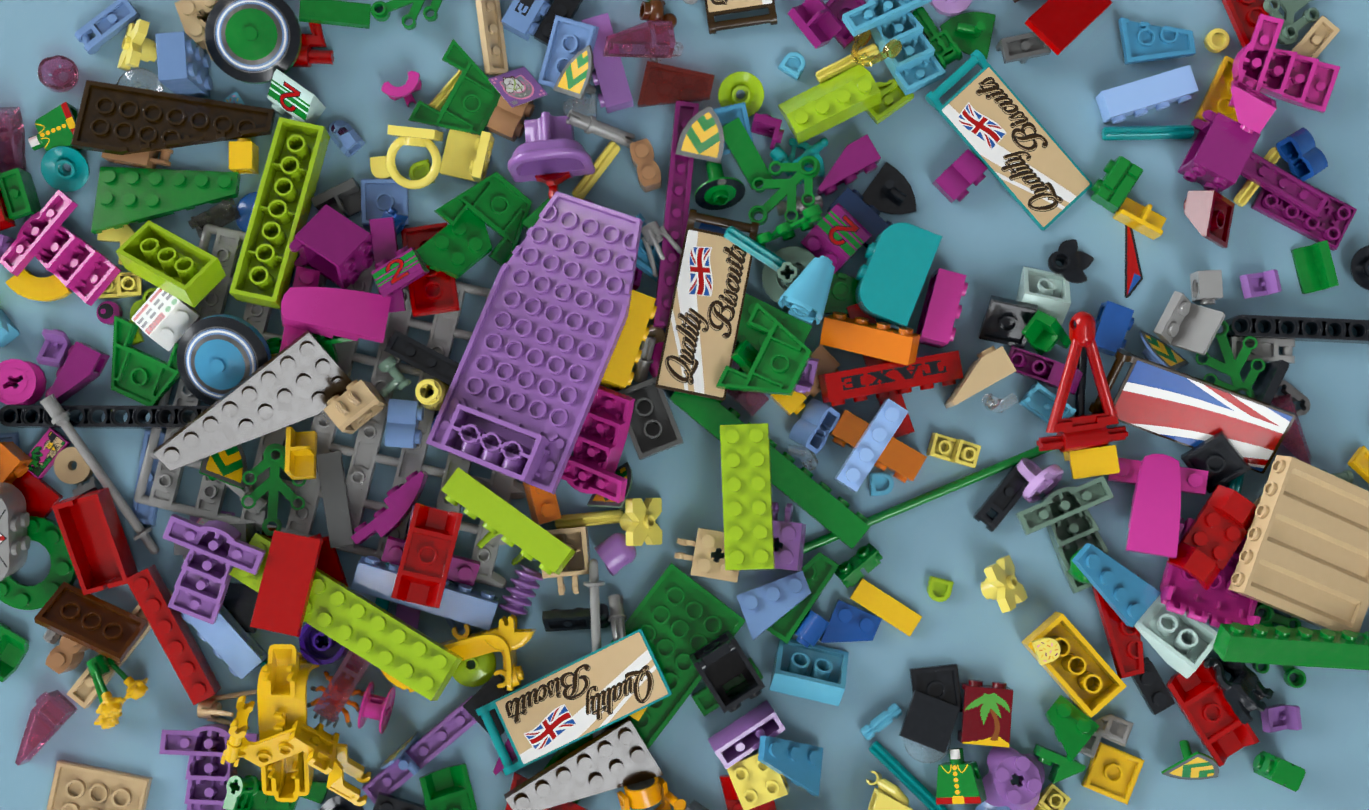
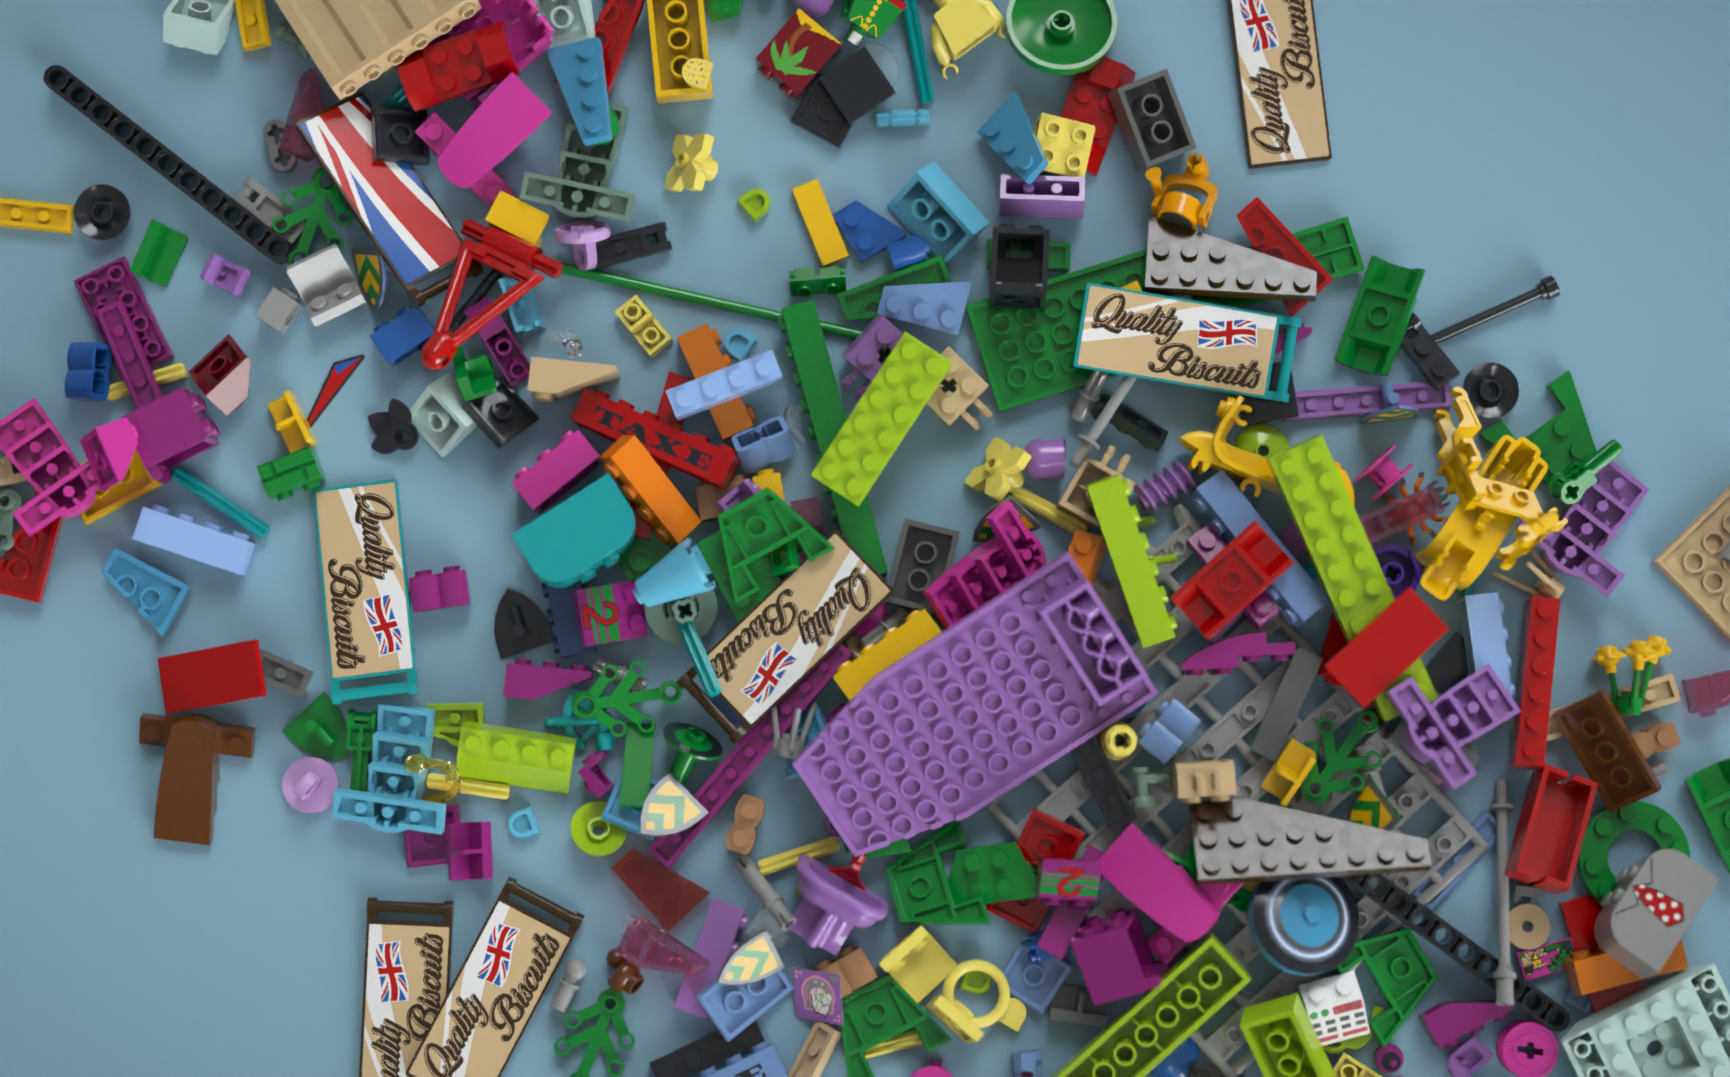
camera: 150 degrees left, 0 degrees up
(786, 230) = (622, 650): green plant -> none
(1217, 40) = (81, 546): light yellow tile -> none
(1269, 380) = (292, 174): black tile -> none

